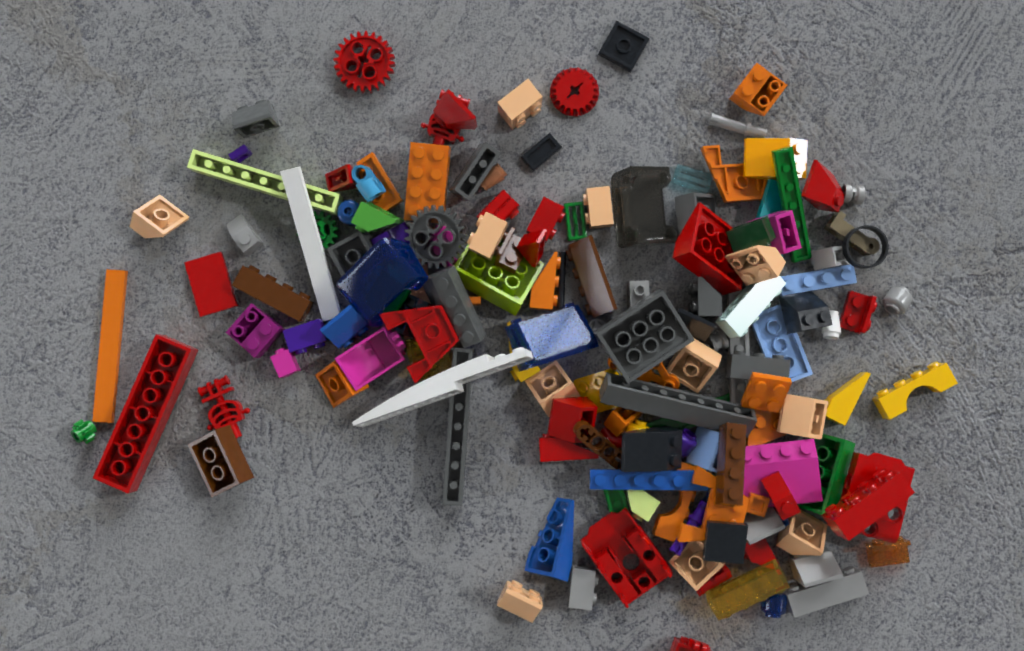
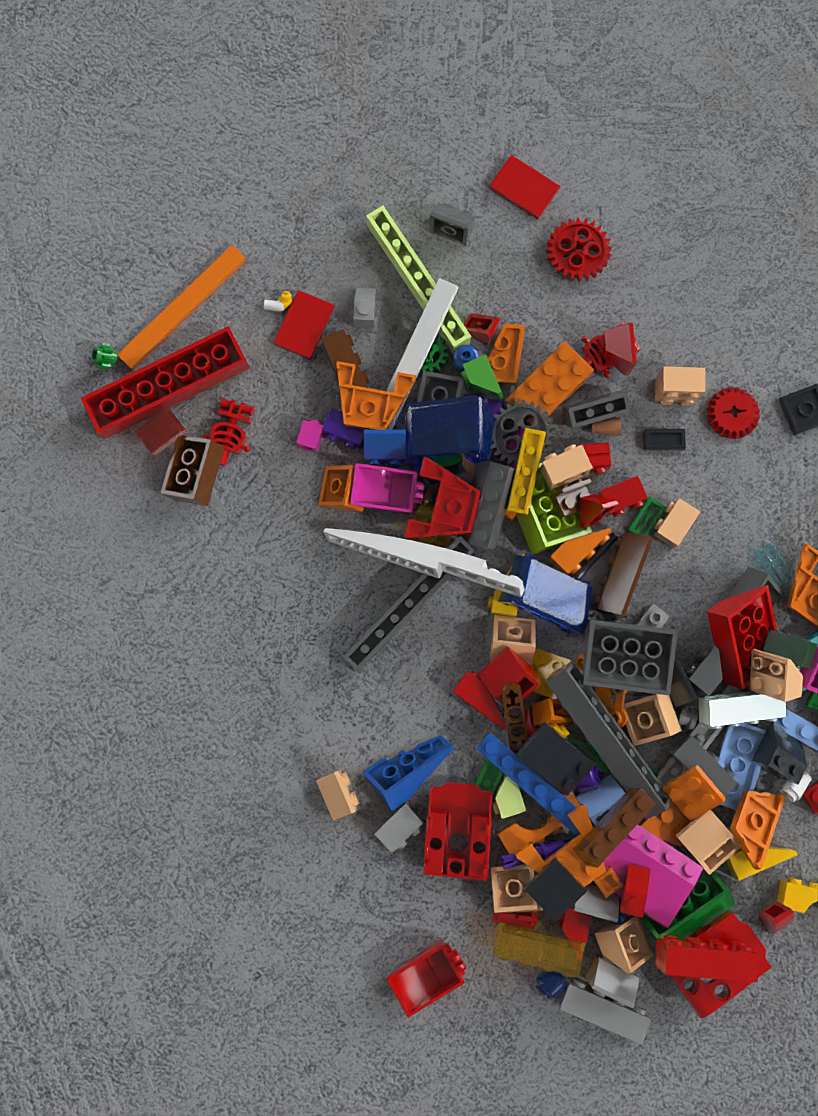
camera: 35 degrees right, 5 degrees down
(157, 218) = (306, 237): light nougat slope -> none
(173, 452) = (160, 431): none -> clear red slope
(180, 284) = (279, 305): none -> arm
(240, 154) = (417, 241): dark purple tile -> none
(255, 331) = (308, 390): magenta slope -> none
(286, 46) = (524, 187): none -> red tile
(309, 309) = (370, 407): none -> orange wing
(370, 185) = (500, 349): dark azure piece -> none
(462, 262) = (526, 471): none -> yellow tile
(640, 207) = (712, 551): clear smoke windscreen -> none
(825, 376) = (755, 824): none -> orange wing
(885, 553) = (687, 1024): clear orange bracket -> none
(890, 430) = (776, 917): none -> red slope

